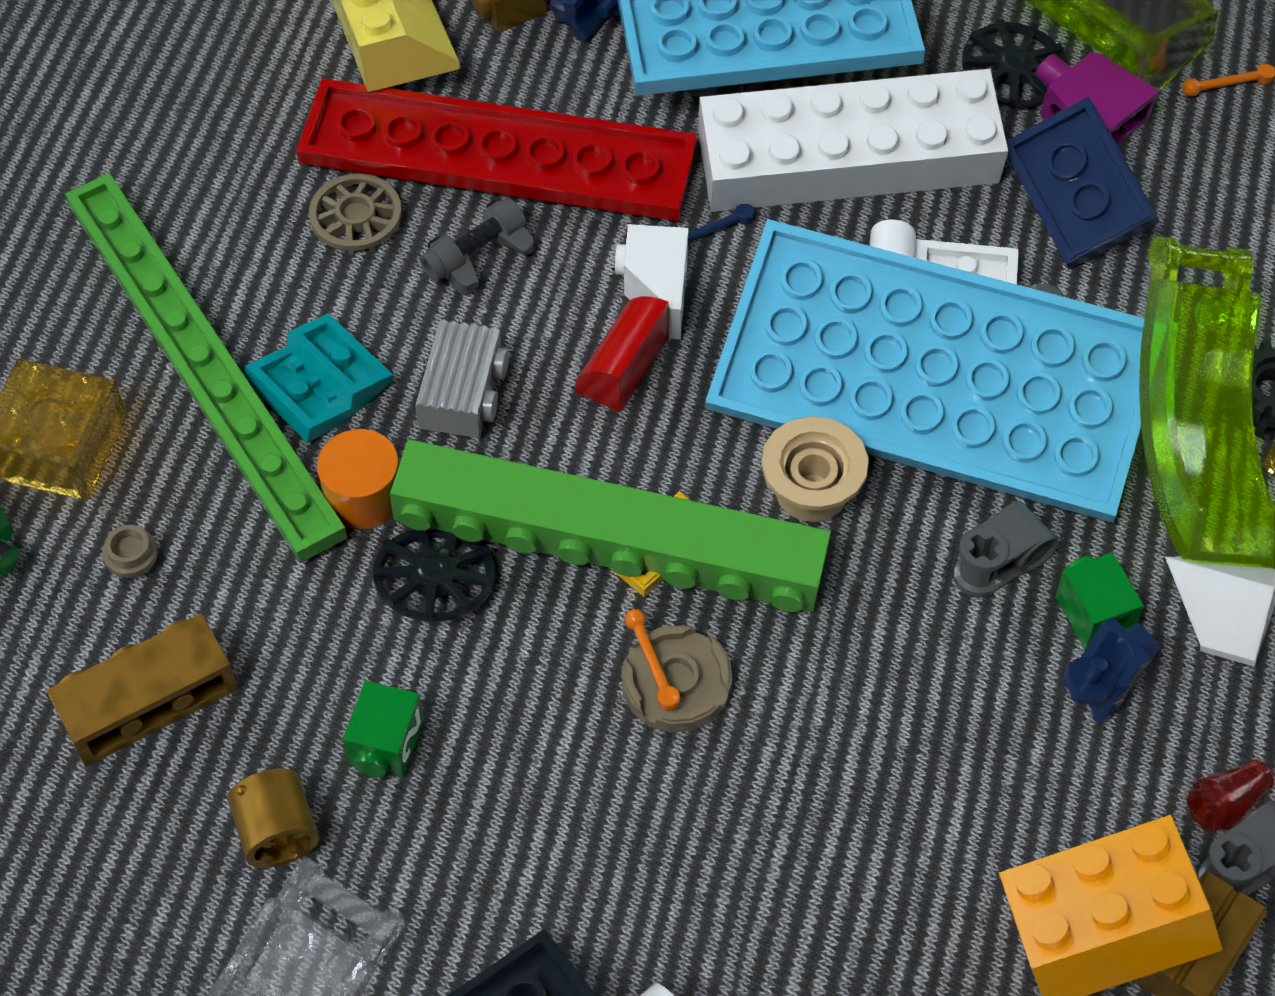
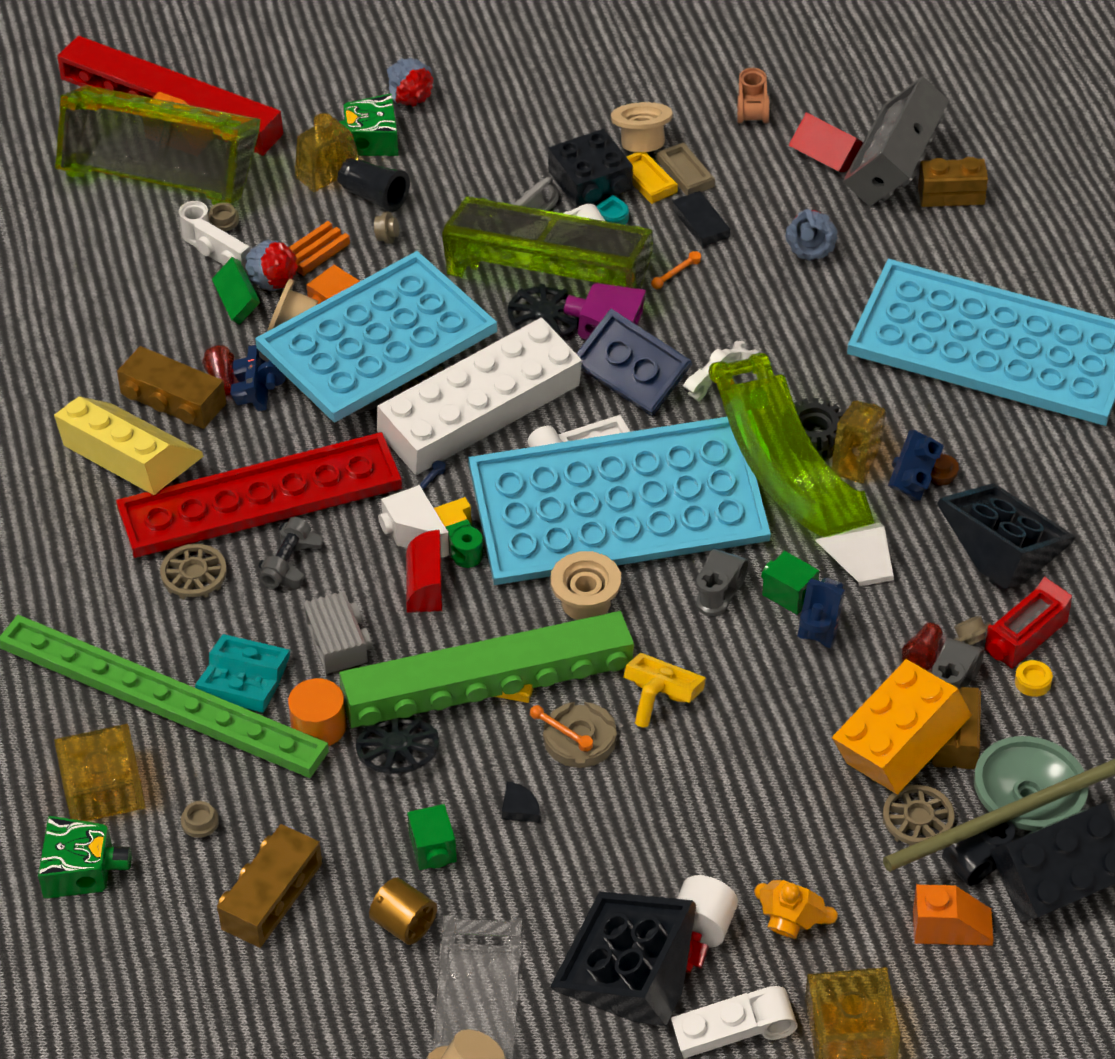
camera: 30 degrees left, 10 degrees down
(531, 739) = (520, 804): none -> black tile
(702, 330) = (464, 540): none -> green leg
(833, 654) = (659, 676): none -> yellow plate
(1202, 232) = (700, 381): none -> white piece

